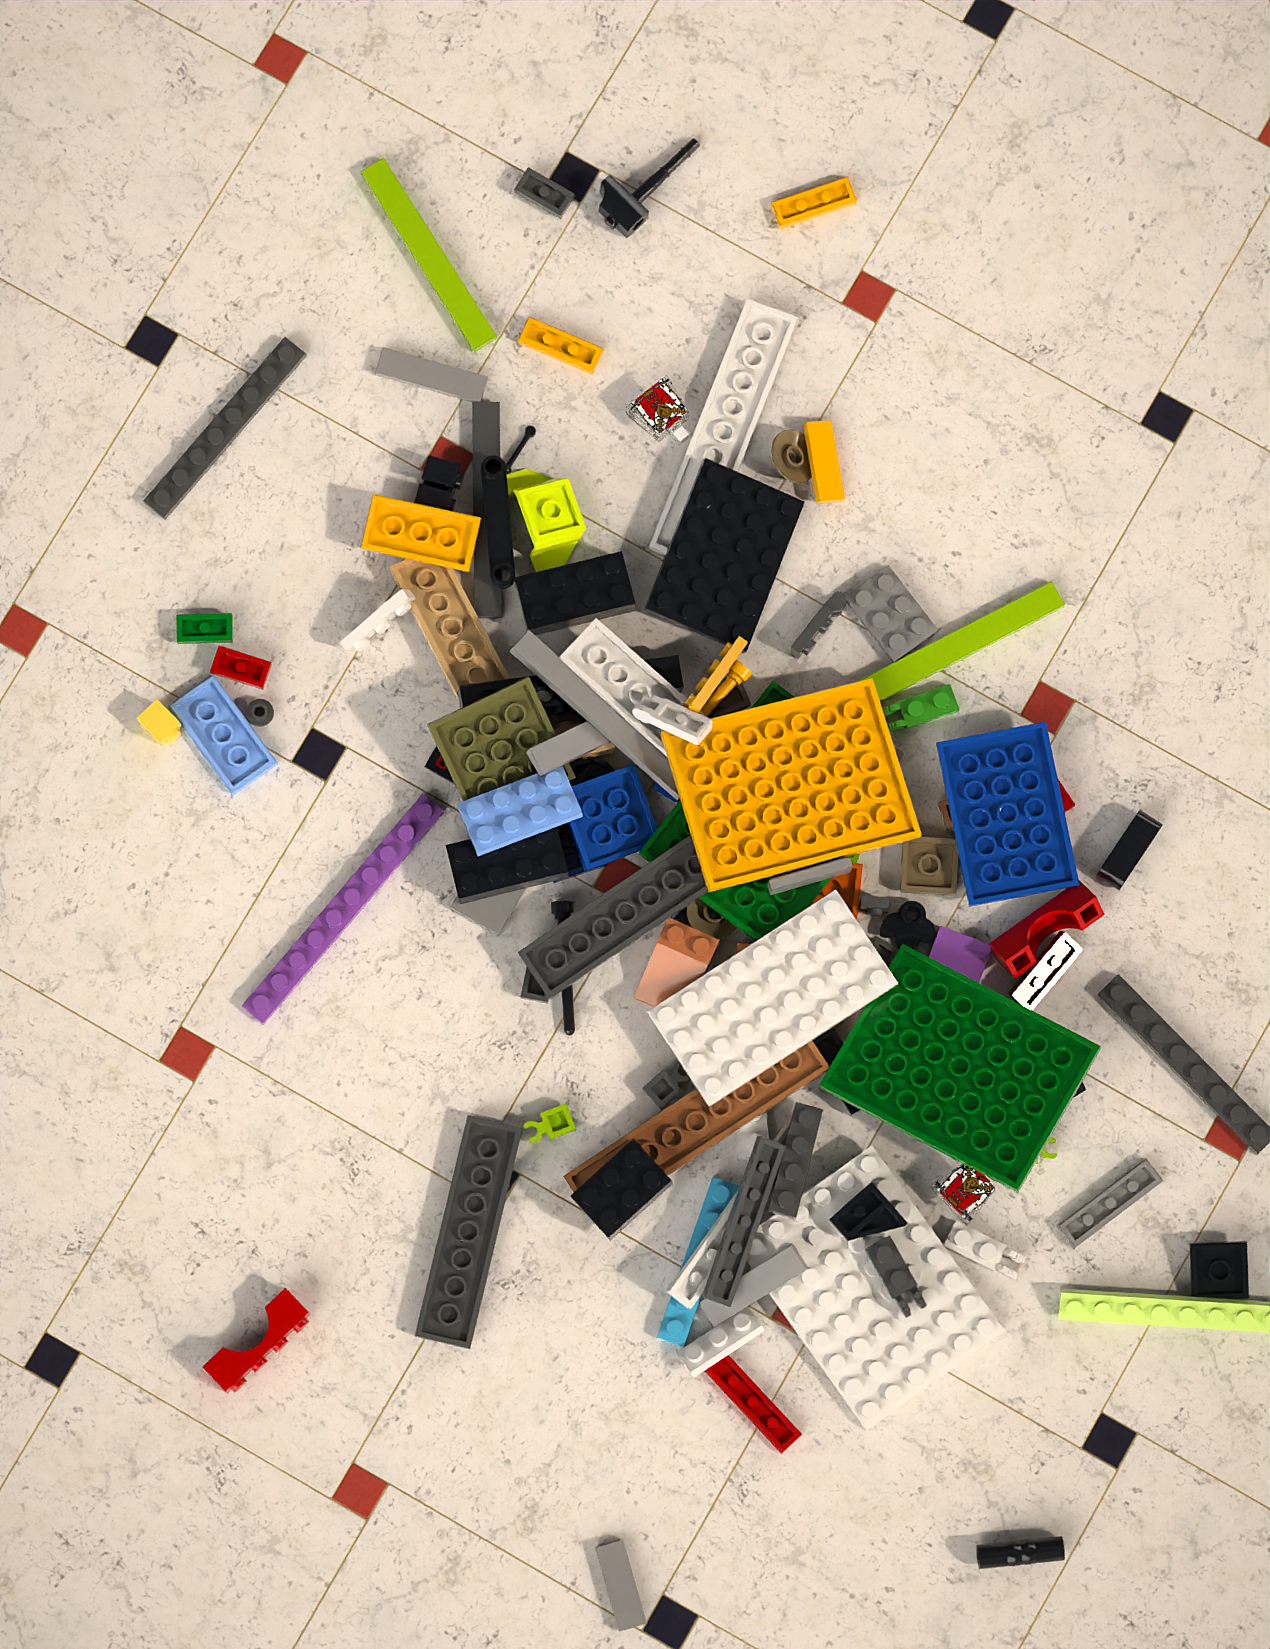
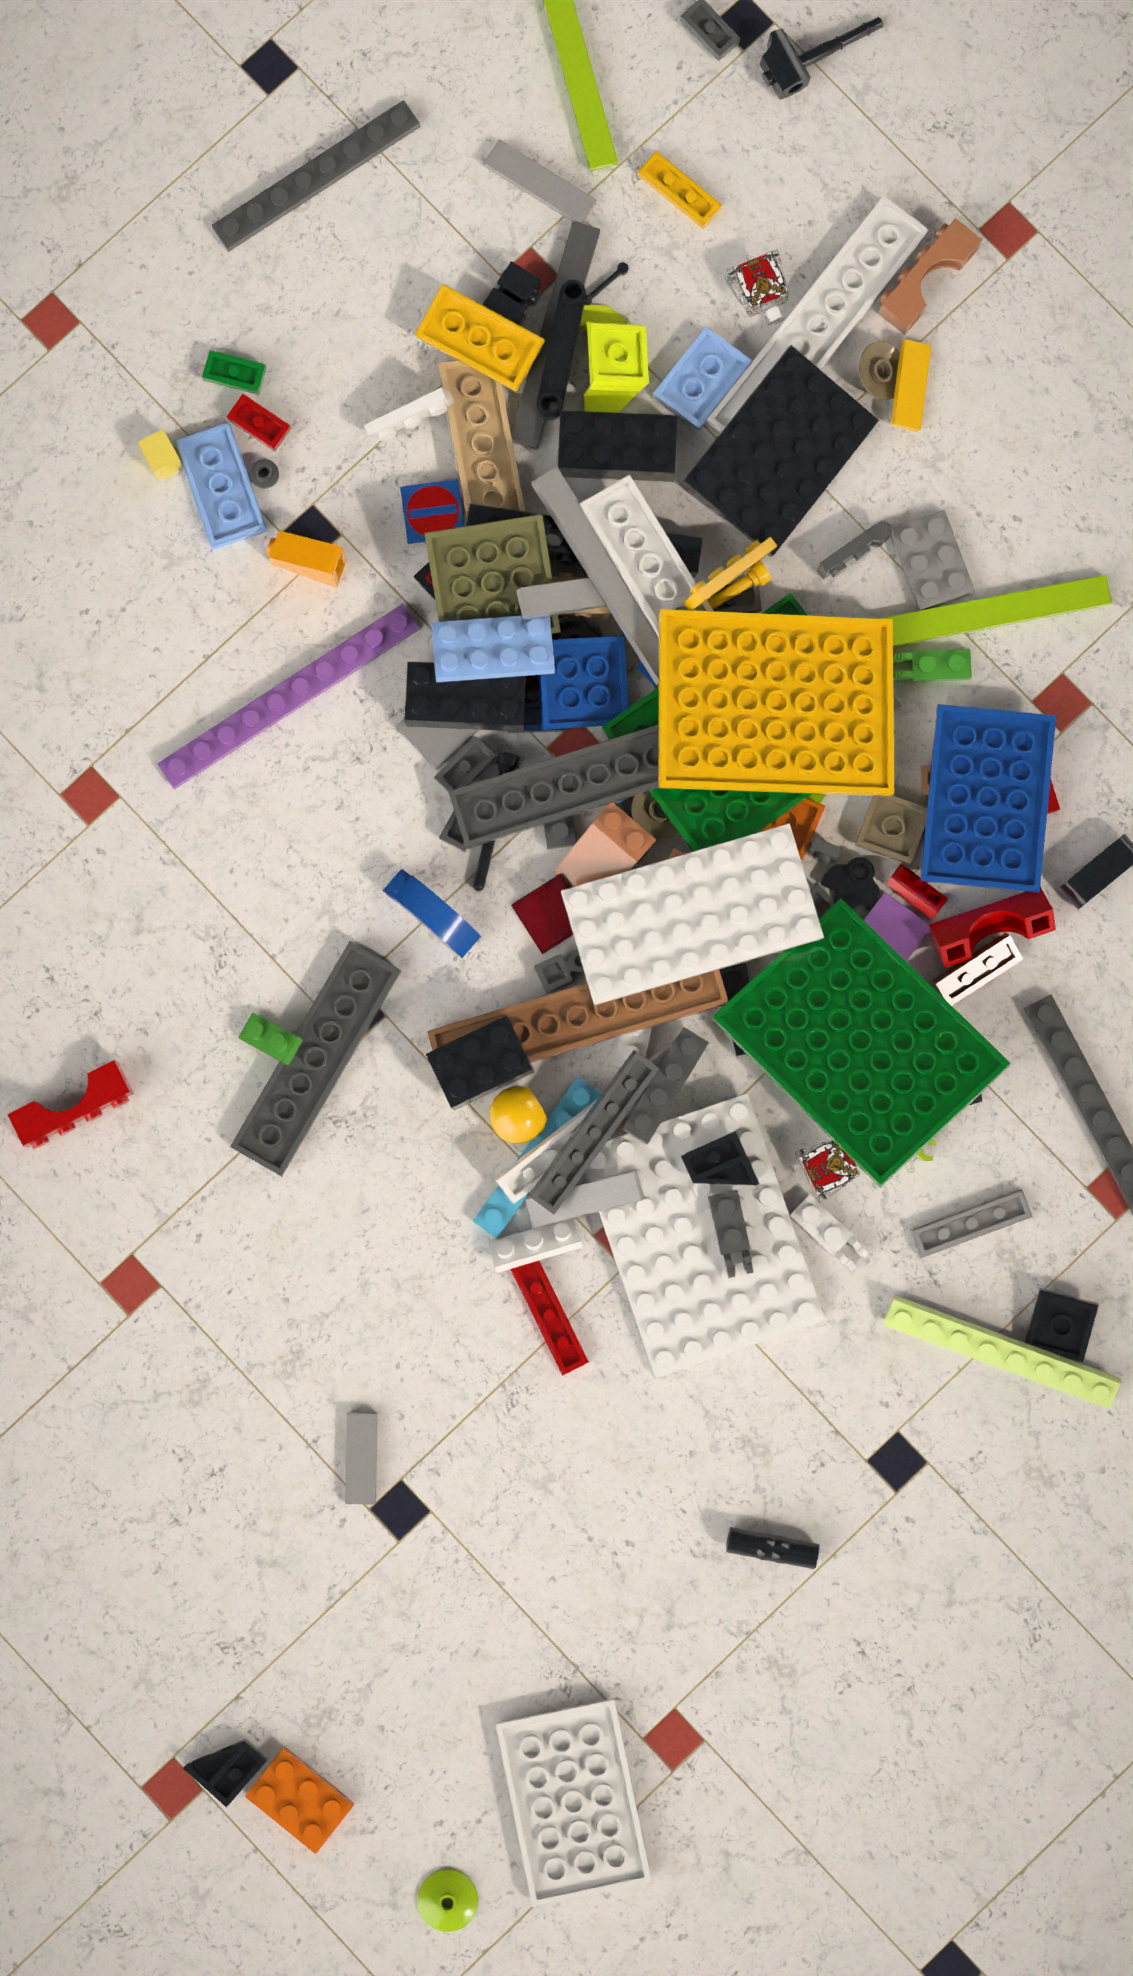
camera: 20 degrees right, 5 degrees up
(323, 777) = (307, 557): none -> light orange slope
(422, 1226) = (270, 1039): none -> bright green plate
(423, 700) = (431, 508): none -> piece
(524, 924) = (465, 765): none -> dark grey plate
(536, 1066) = (432, 912): none -> blue arch
(554, 1122) = (435, 974): lime plate -> none
(629, 960) = (560, 833): none -> dark grey plate
(633, 510) = (701, 378): none -> light blue plate
(638, 1037) = (545, 914): none -> dark red piece
(669, 1227) = (517, 1115): none -> yellow helmet
(673, 718) = (676, 599): white hinge -> none
(809, 875) = (767, 801): light grey tile -> none
(813, 202) = (981, 118): yellow tile -> none
(823, 329) = (952, 250): none -> nougat arch
(968, 917) = (916, 892): none -> red plate

